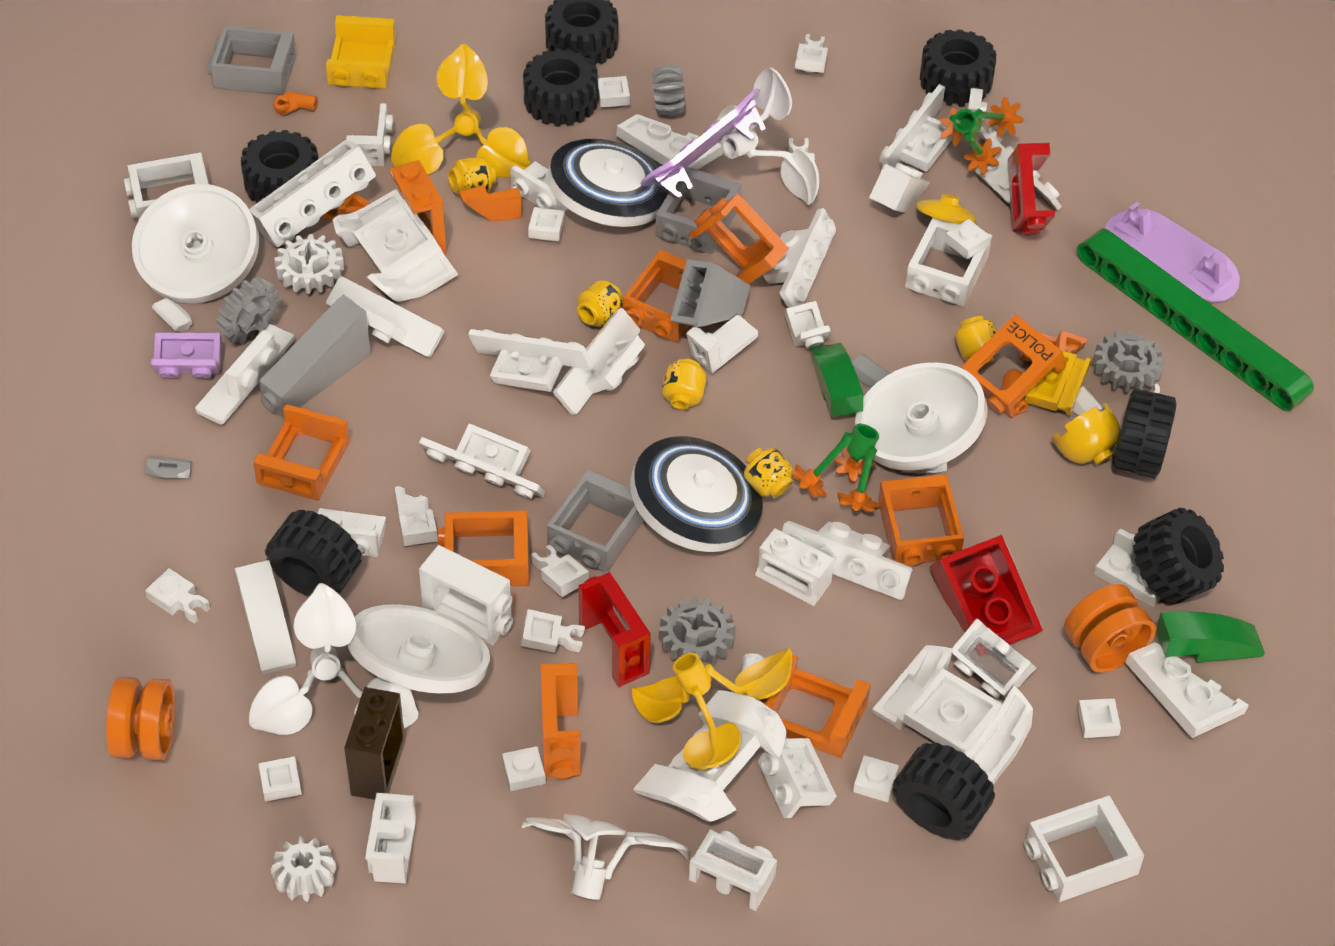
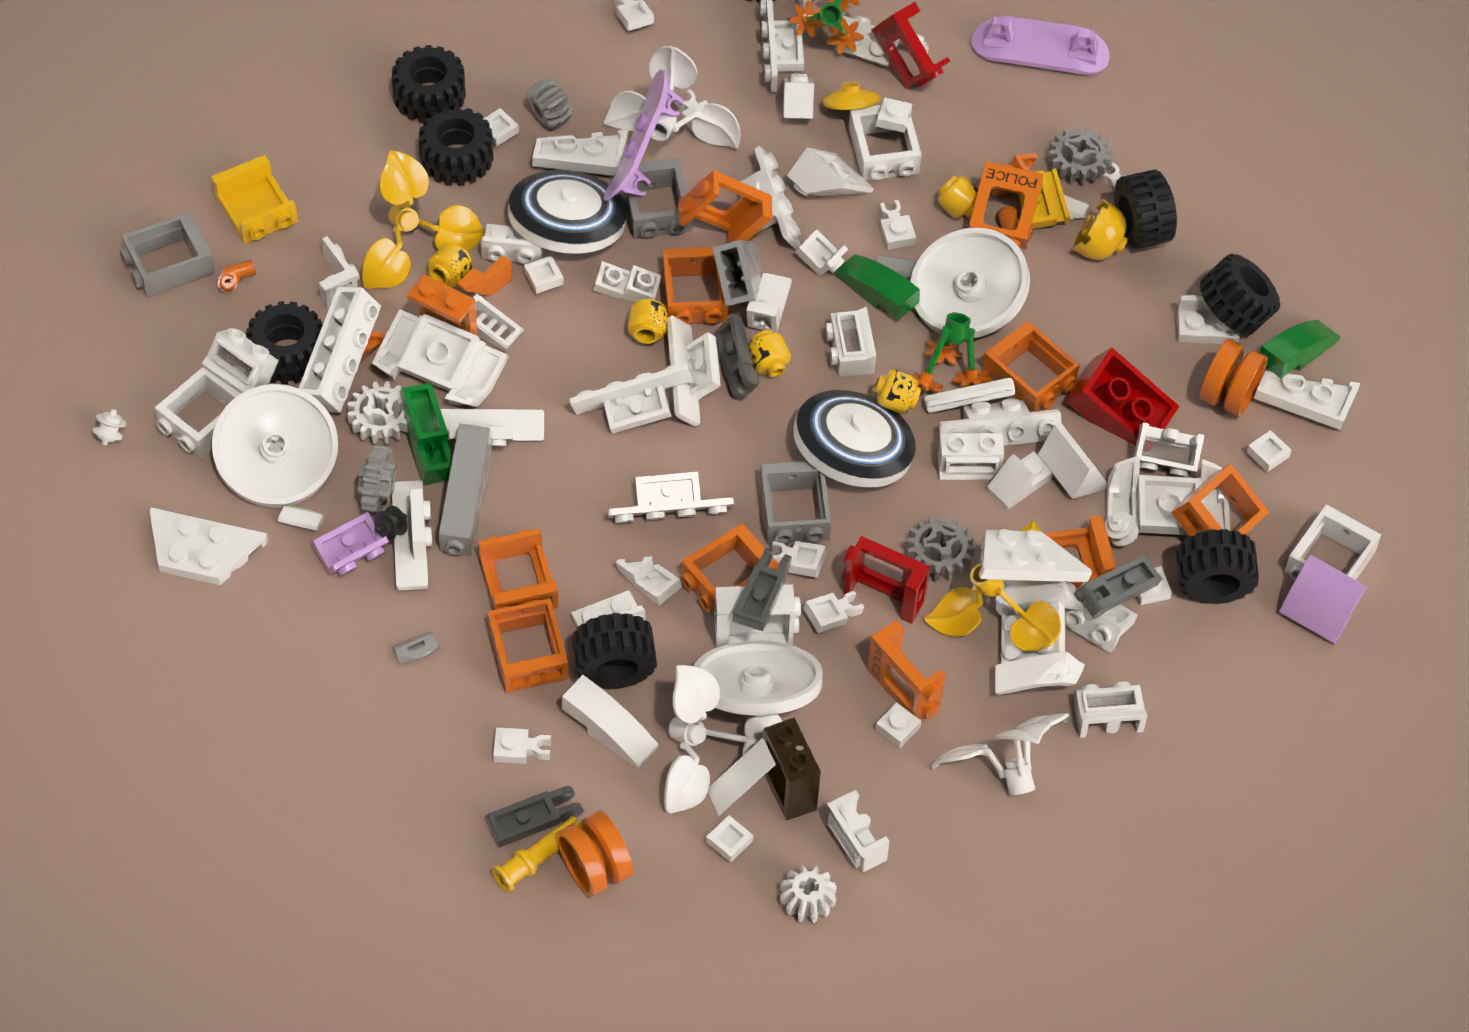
camera: 35 degrees left, 5 degrees up
(73, 295) = (201, 547): none -> white wing
(81, 695) = (525, 862): none -> yellow pin
(85, 166) = (109, 427): none -> white wheel
(131, 659) = (532, 815): none -> dark grey hinge
(222, 159) = (240, 360): none -> white window
(227, 350) = (391, 522): none -> pearl dark grey wheel
(243, 539) = (532, 671): none -> orange window
(327, 726) = (741, 776): none -> white sticker
(329, 284) = (427, 433): none -> green slope
(467, 220) = (491, 313): none -> white slope
(472, 567) = (761, 592): none -> dark grey hinge
(612, 265) = (626, 284): none -> white slope
(652, 373) = (736, 357): none -> dark grey hinge
(744, 673) = (1028, 557): none -> white wing
(768, 413) = (852, 343): none -> white window
(824, 614) = (1019, 479): none -> white slope
(829, 755) = (1119, 585): none -> dark grey plate
(841, 513) = (969, 395): none -> white axle
(869, 263) = (826, 175): none -> white slope
(883, 707) = (1121, 528): none -> white wheel
(888, 624) = (1070, 464): none -> white slope
(900, 341) = (896, 229): none -> white plate
(956, 734) = (1193, 514): none -> orange window
(1032, 883) = (1322, 599): none -> lavender slope
(1196, 320) = (1099, 93): green beam -> none

